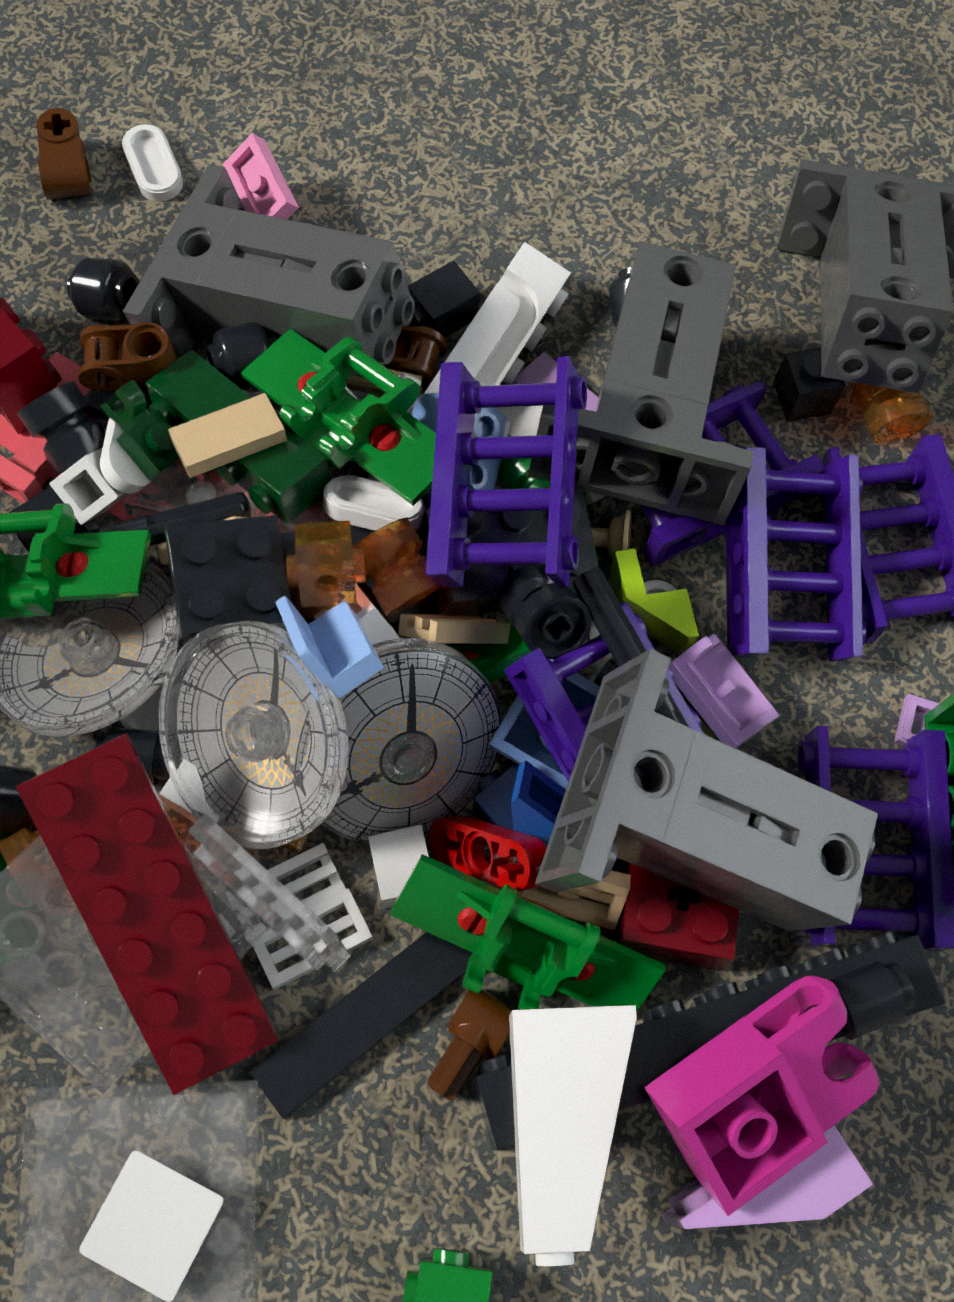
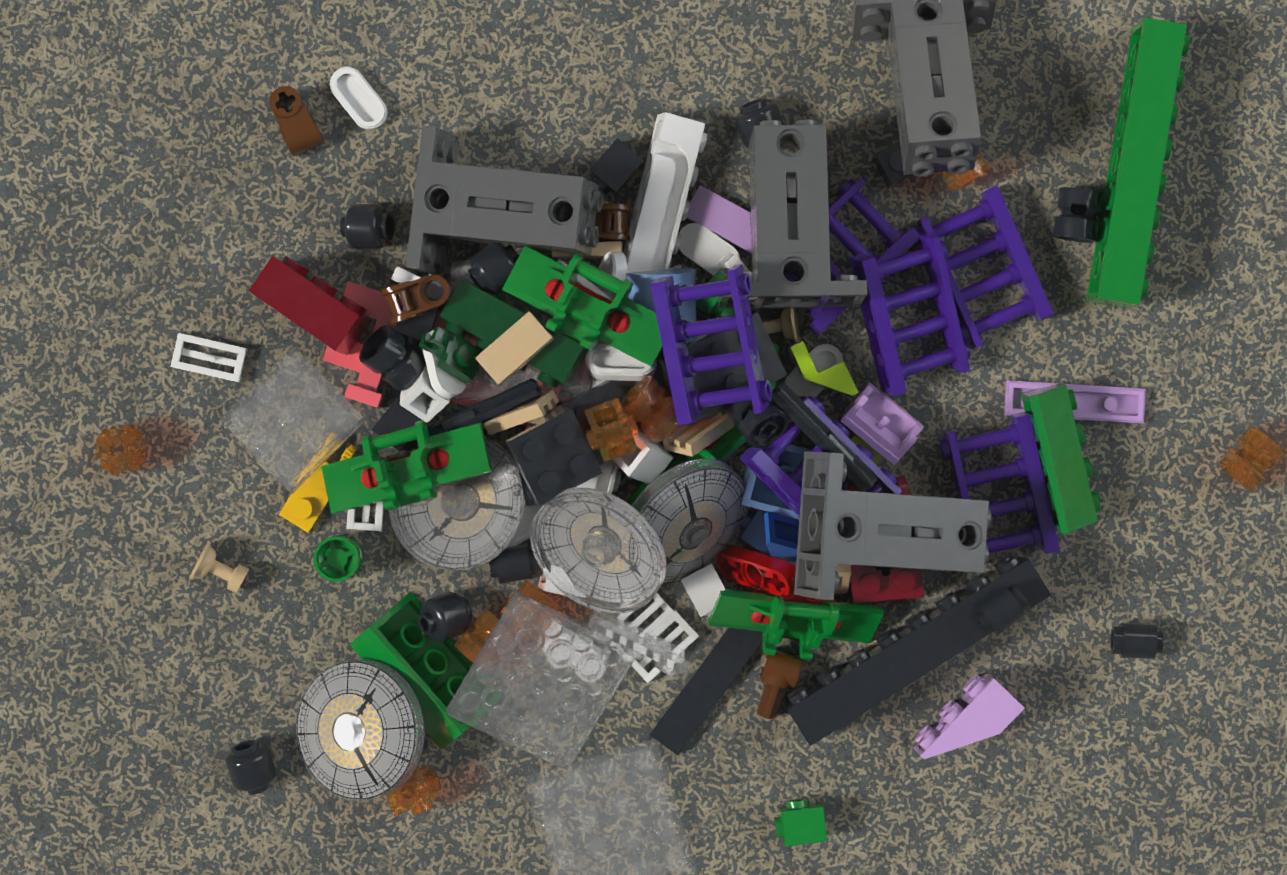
camera: 15 degrees left, 20 degrees up
(148, 912) = (566, 666): dark red plate -> none
(151, 1226) = (622, 832): white sticker -> none
(260, 180) = (457, 115): bright pink panel -> none
(332, 645) = (634, 488): light blue panel -> none
(565, 1109) = (842, 716): white slope -> none
(764, 1092) = (953, 677): dark pink brick -> none

